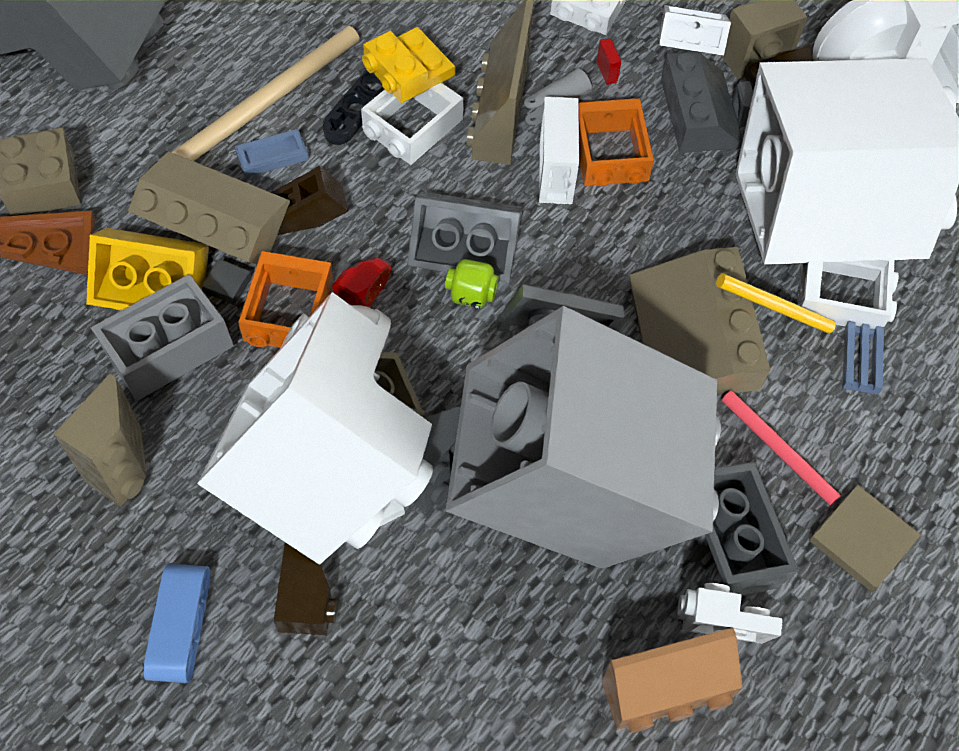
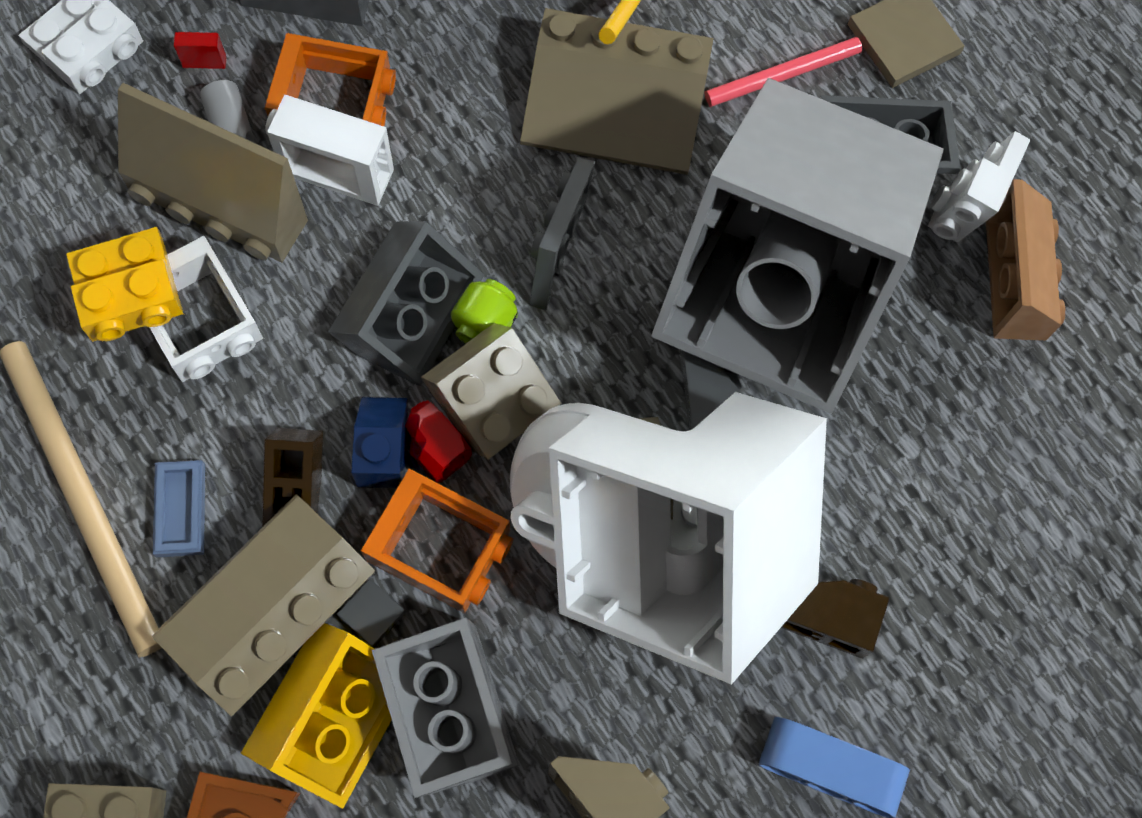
camera: 75 degrees left, 10 degrees up
(350, 243) = (380, 442): none -> dark blue slope
(353, 120) = (129, 365): black beam -> none
(409, 295) = (491, 389): none -> dark tan brick

